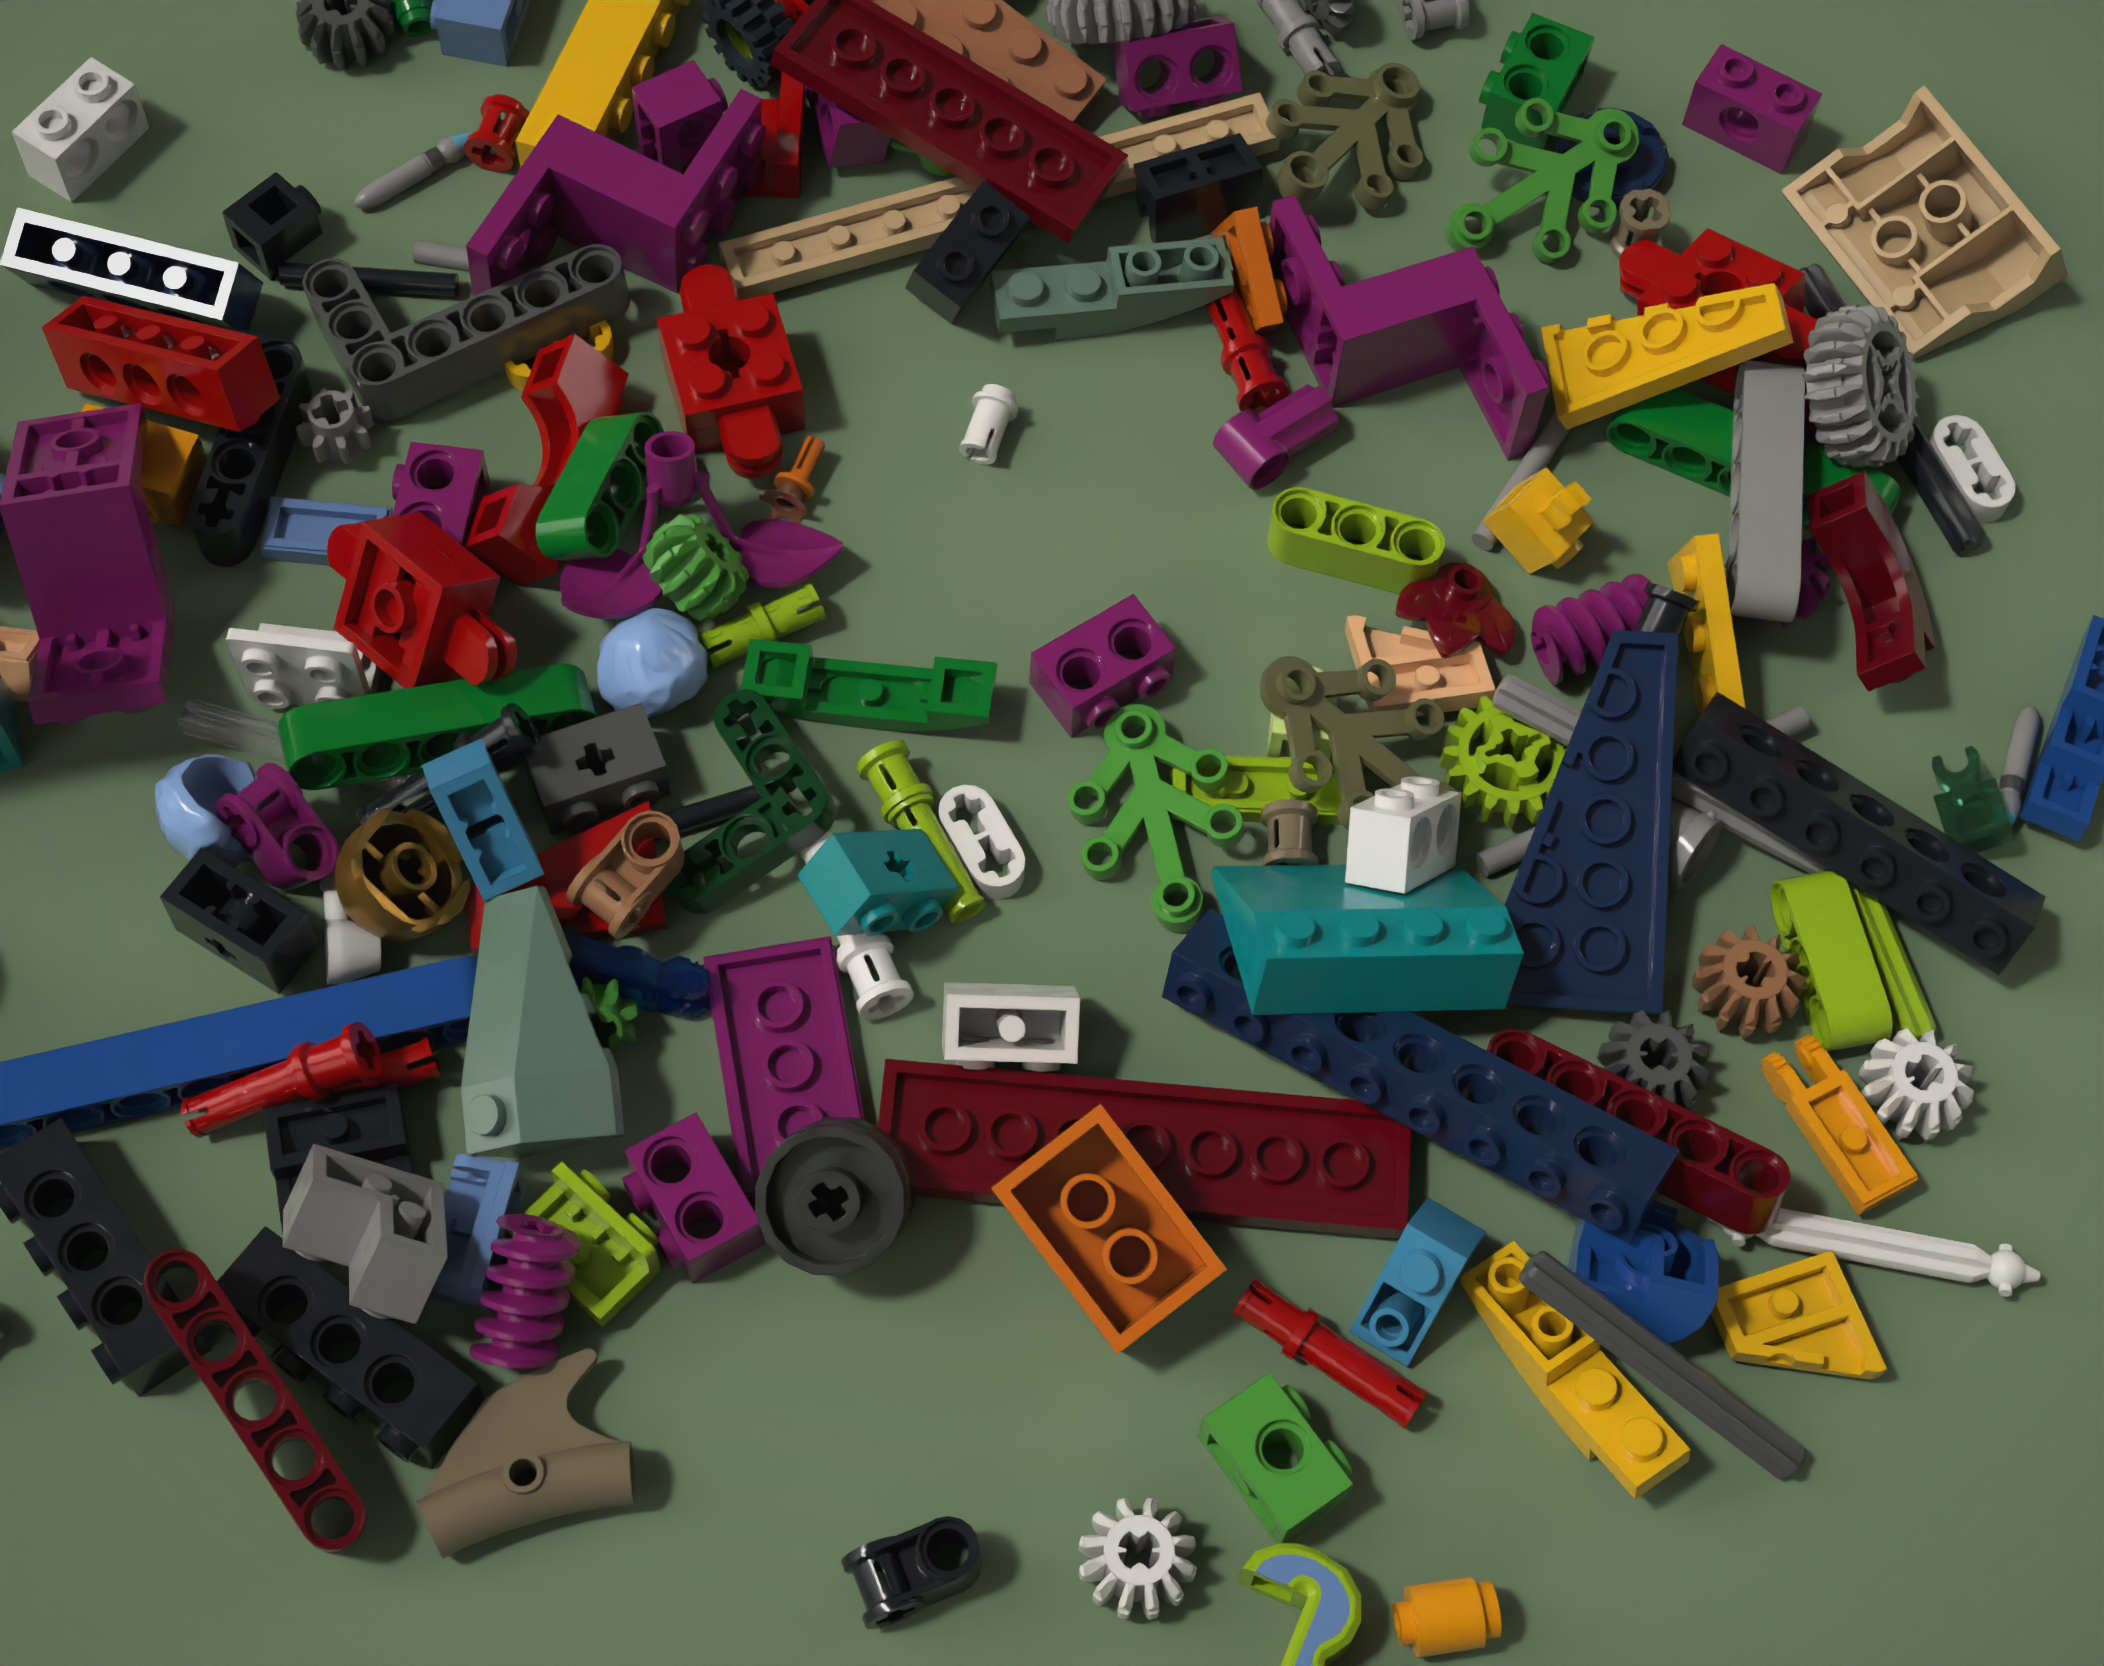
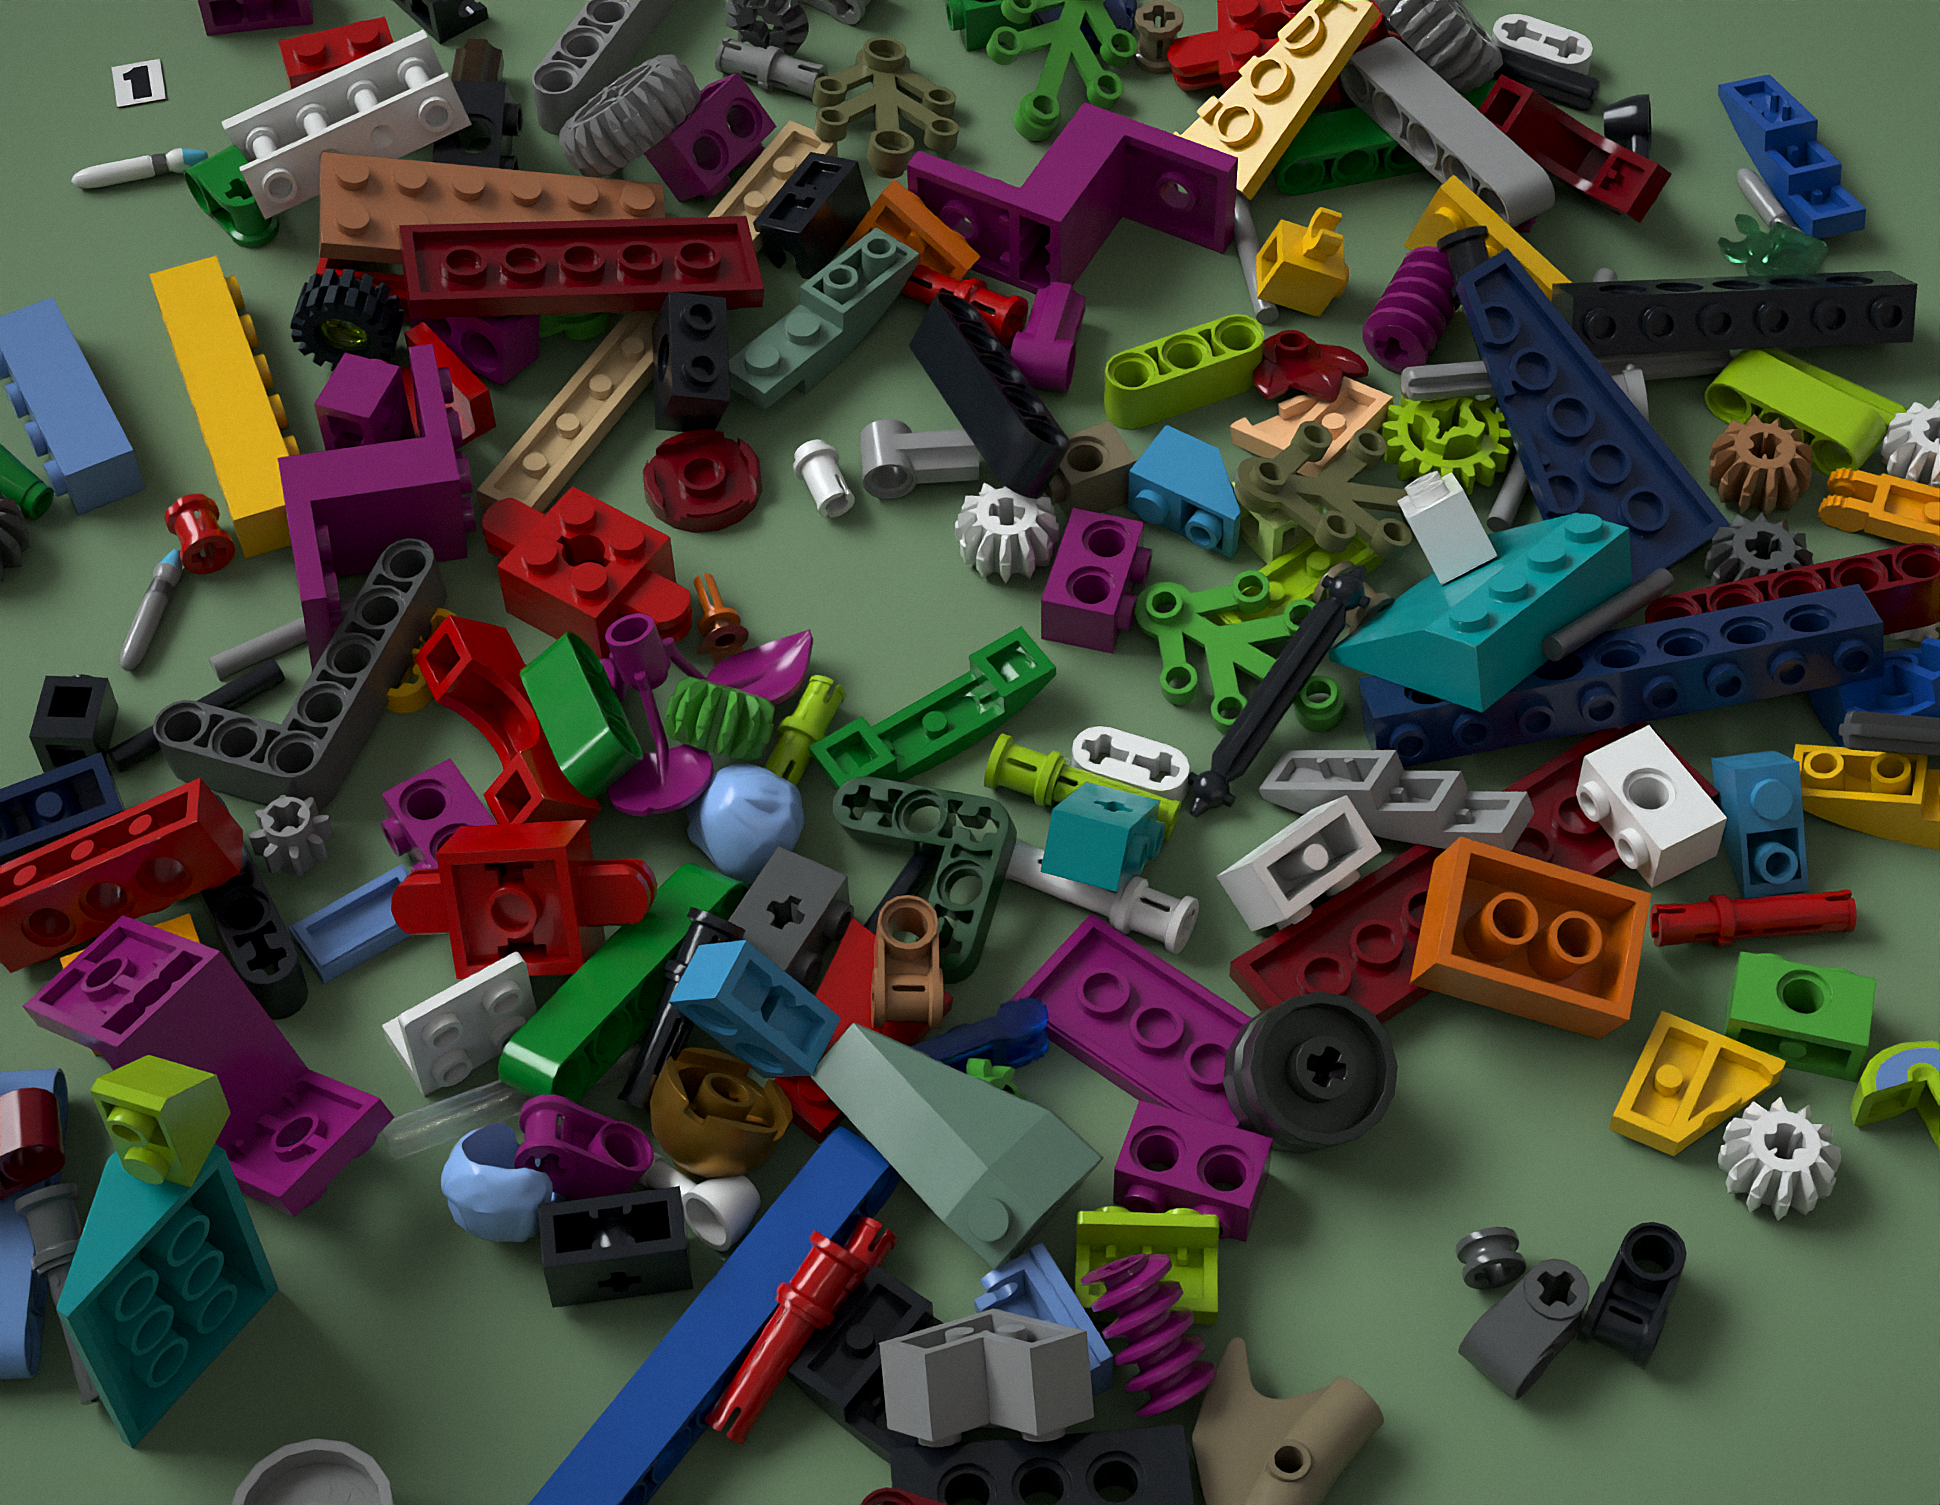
camera: 35 degrees left, 10 degrees down
(800, 1527) = (1524, 1334): none -> dark grey piece
(840, 1447) = (1490, 1258): none -> dark grey bush
(902, 358) = (702, 481): none -> dark red tile
(1062, 451) = (898, 458): none -> light grey piece
(1078, 573) = (1006, 532): none -> white gear
(1134, 1442) = (1689, 1084): none -> yellow wing
(1141, 1034) = (1397, 803): none -> light grey slope
(1144, 868) = (1277, 691): none -> black wheel
(1162, 449) = (989, 396): none -> black beam
(1196, 593) = (1092, 471): none -> dark tan brick
(1246, 634) = (1186, 490): none -> dark azure slope
(1340, 1163) = (1679, 818): none -> white brick
(1451, 1012) = (1607, 614): none -> flat silver bar
(1971, 598) = (1630, 123): none -> black bar

